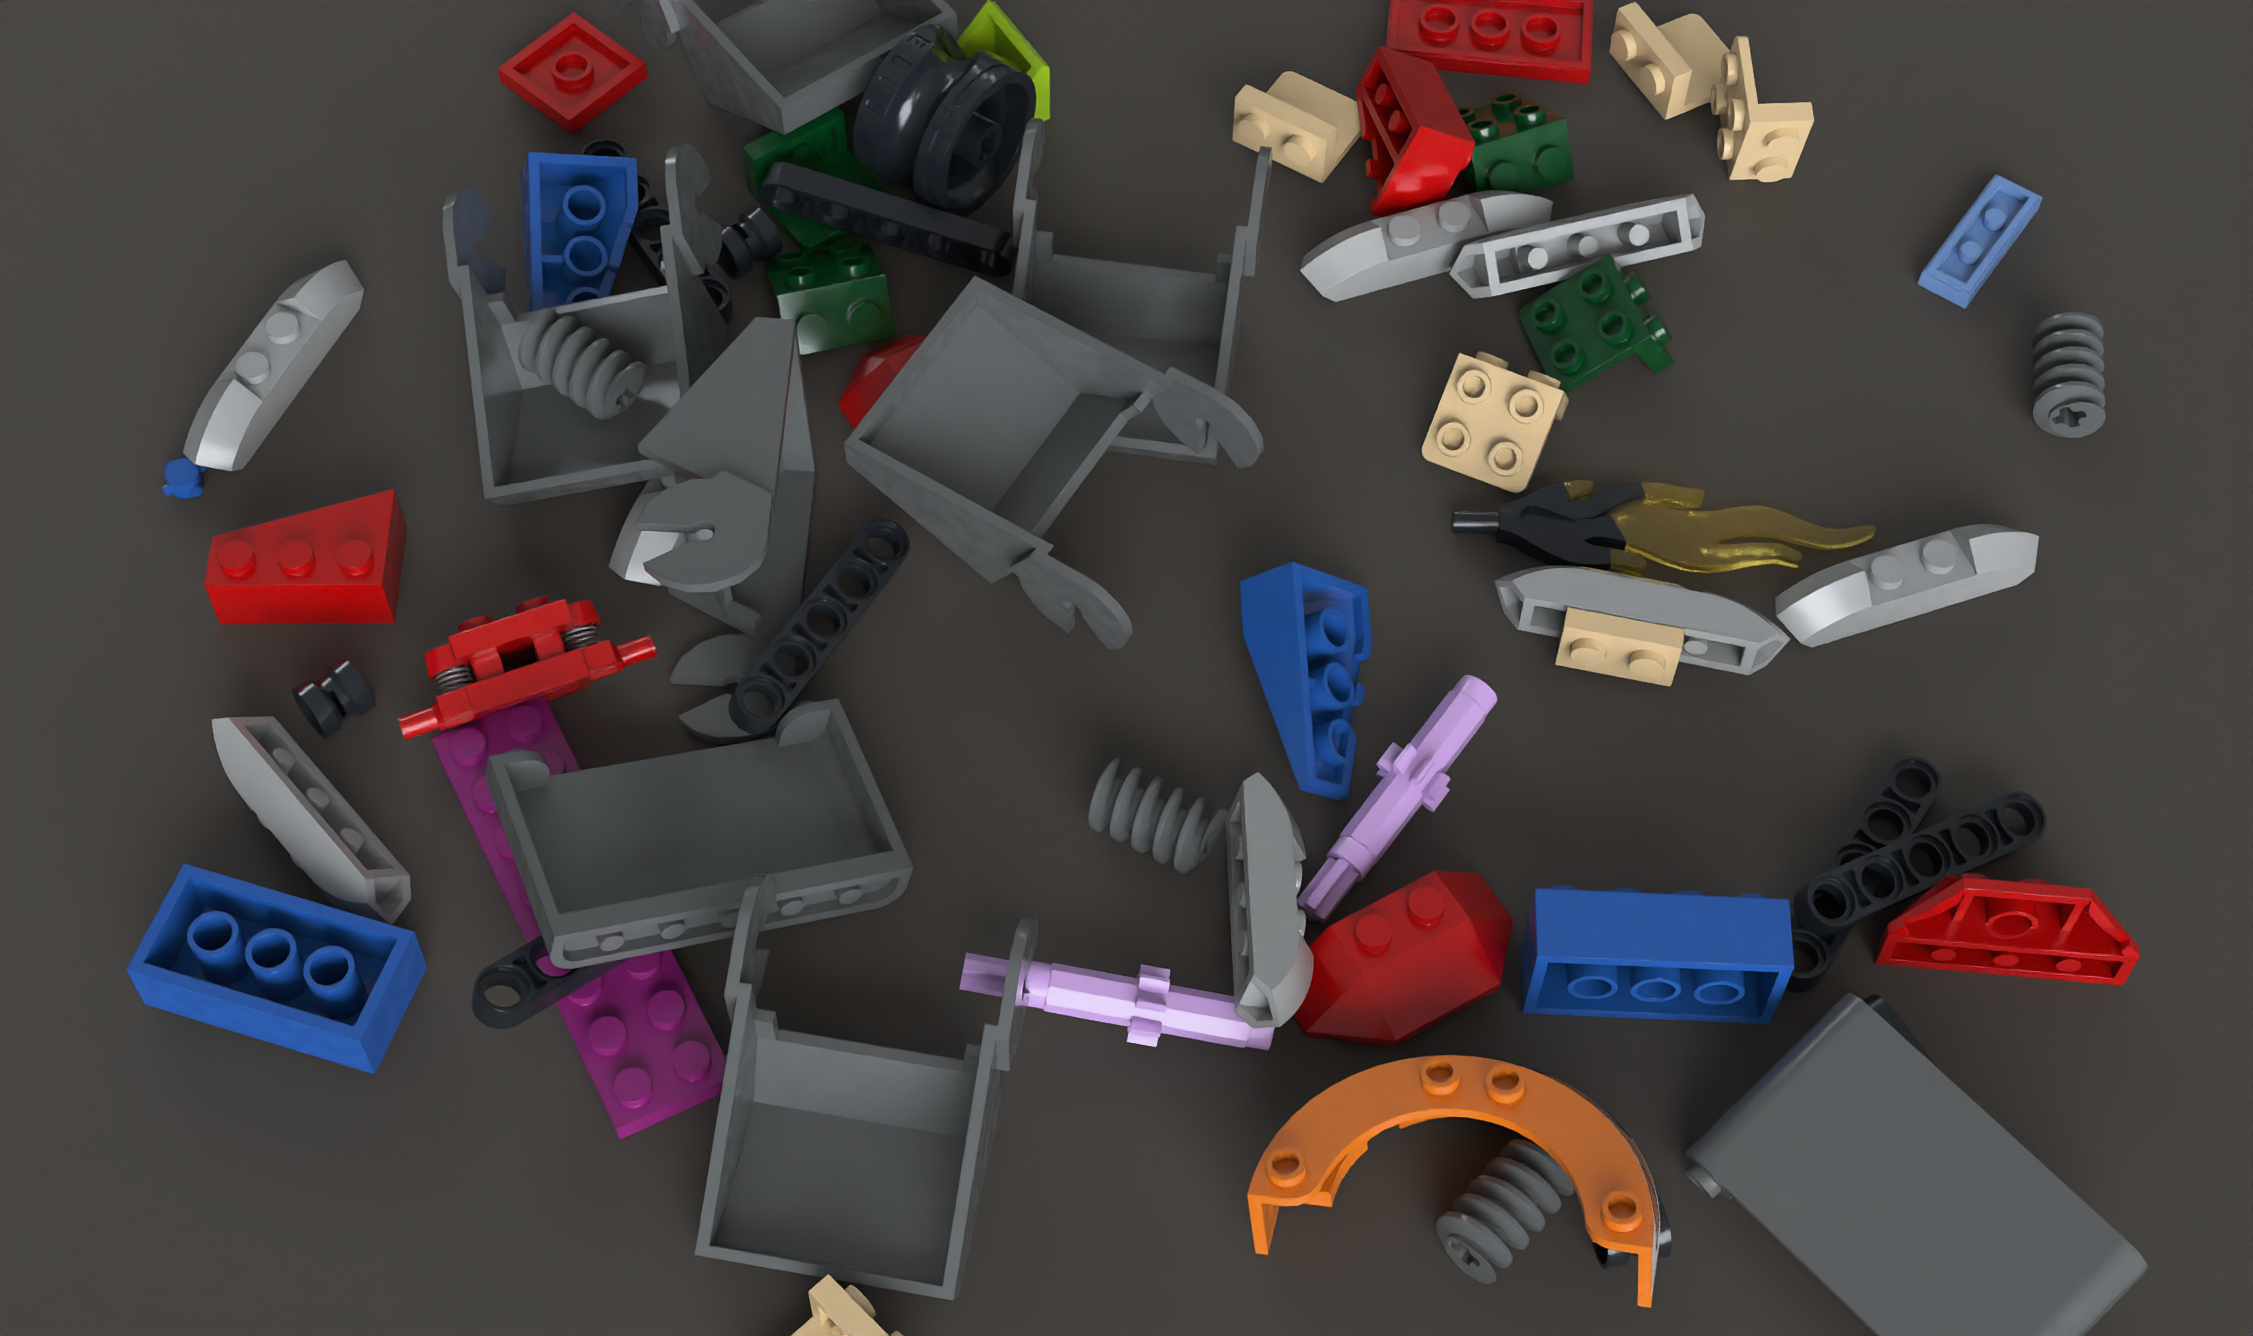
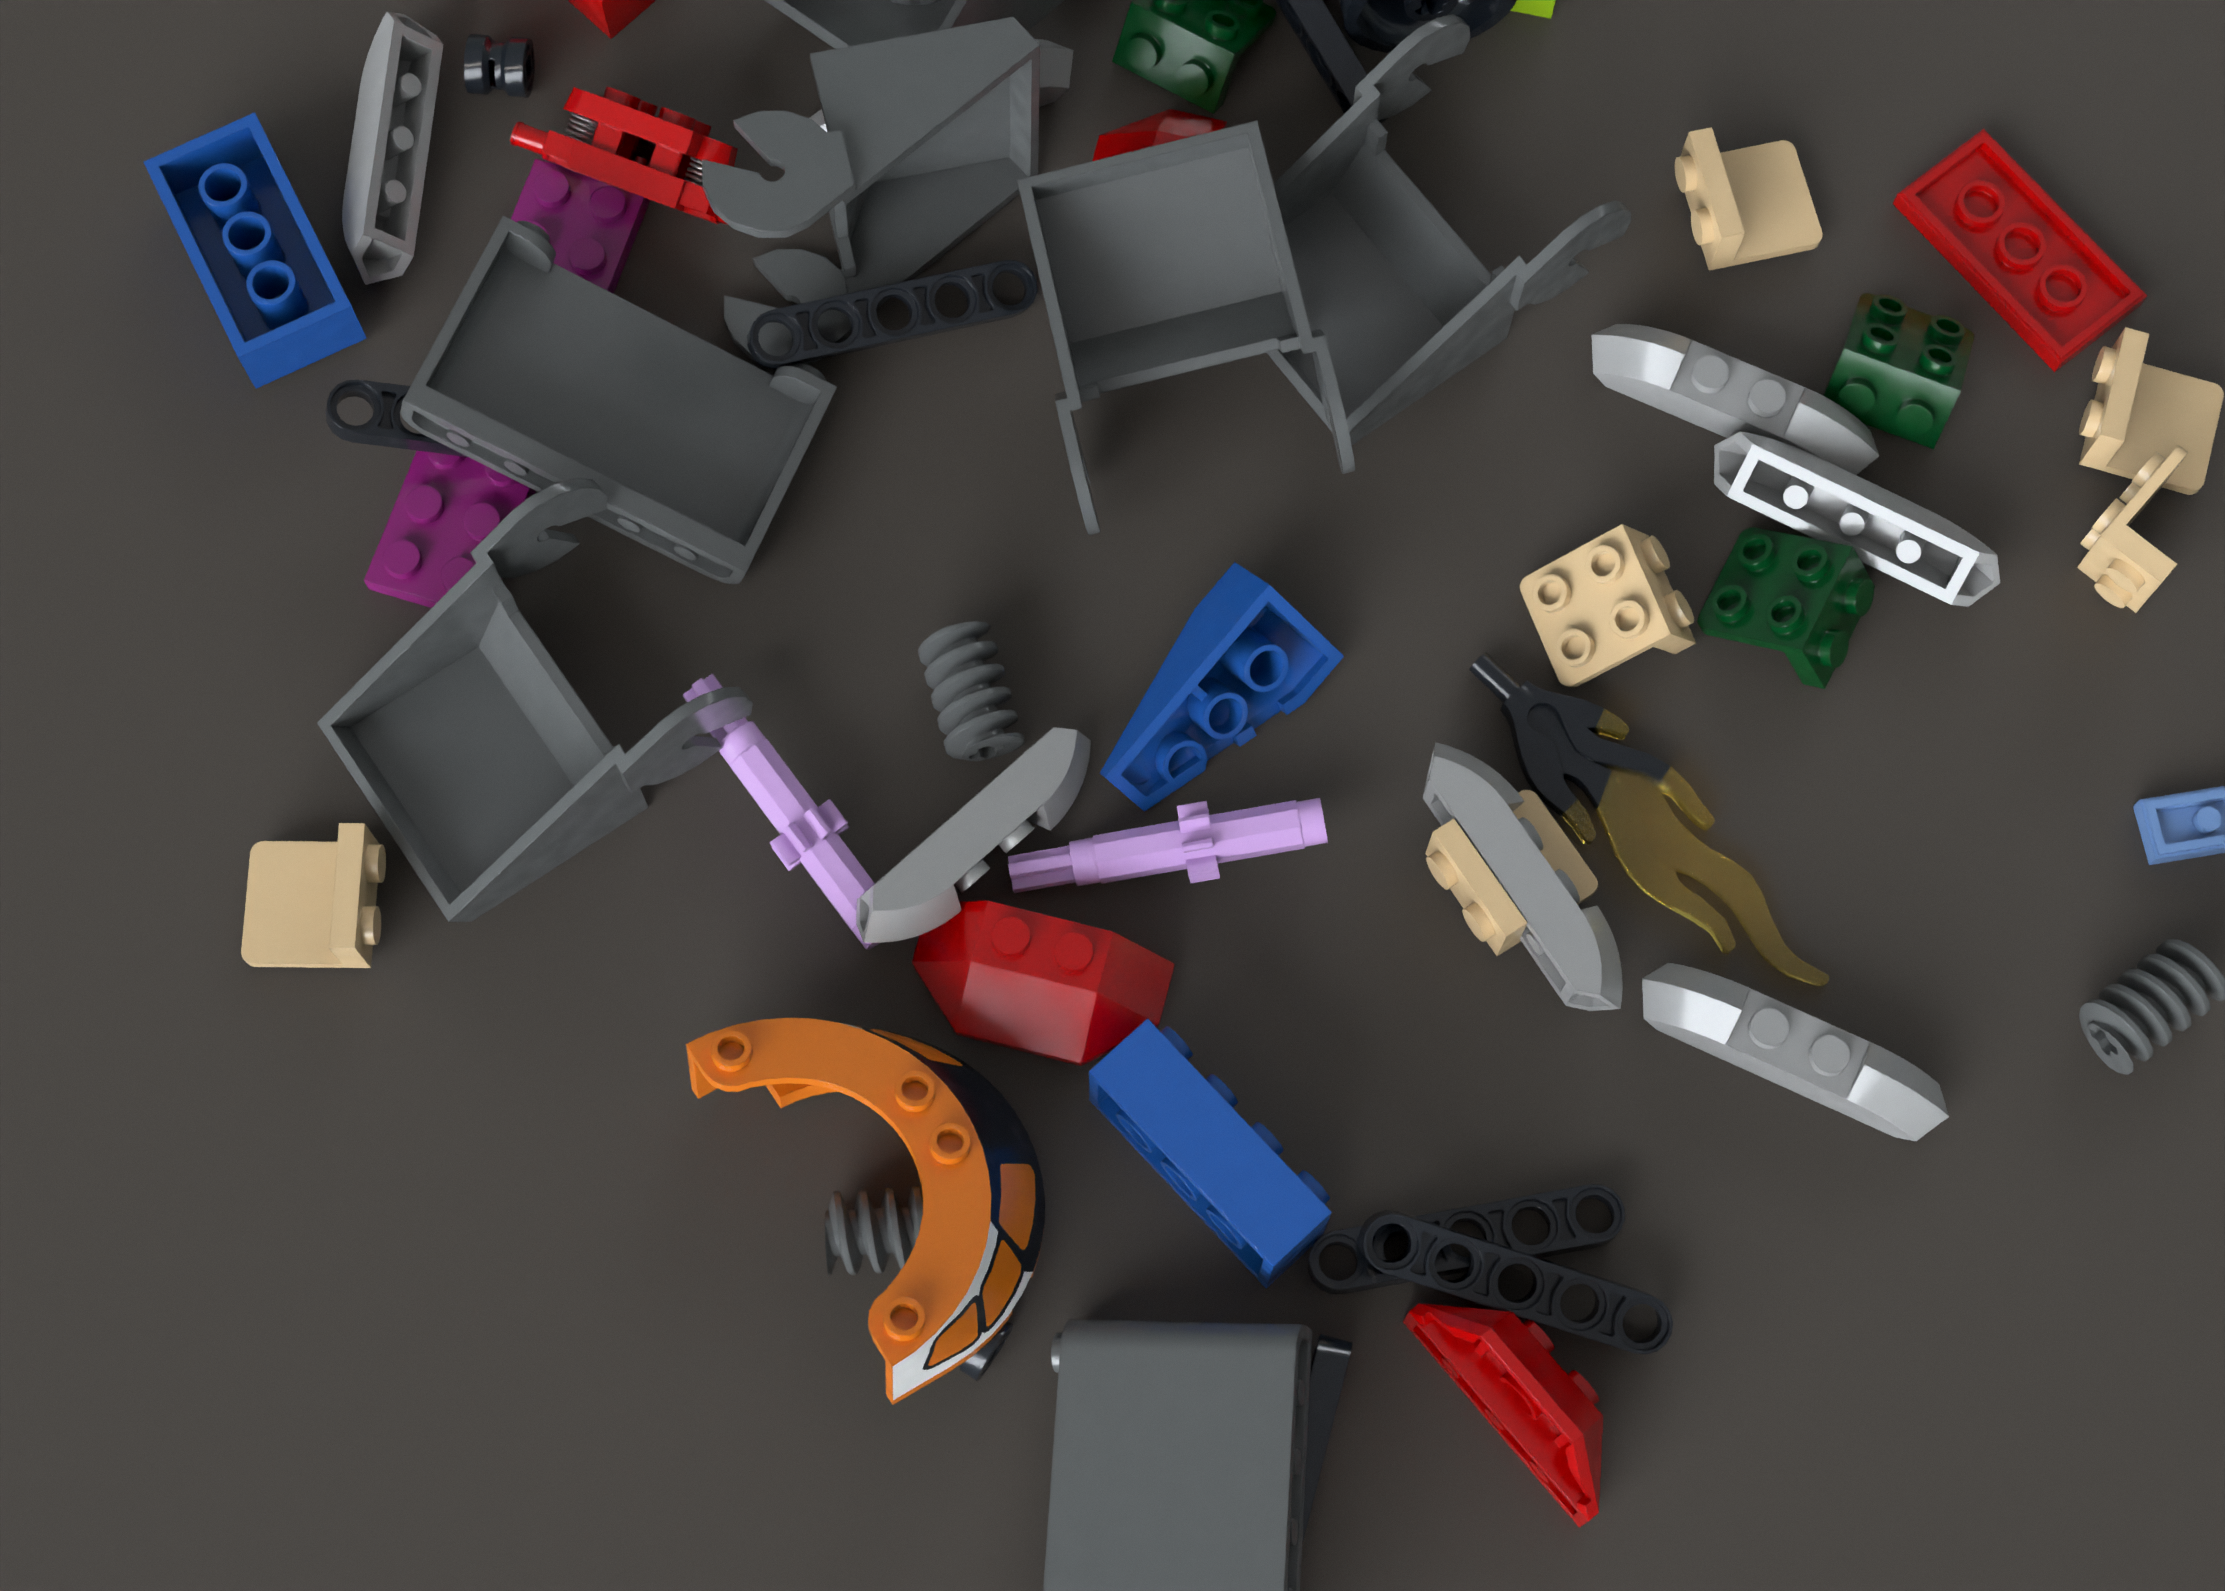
camera: 45 degrees right, 15 degrees up
(1412, 131) = (1823, 289): red wedge -> none

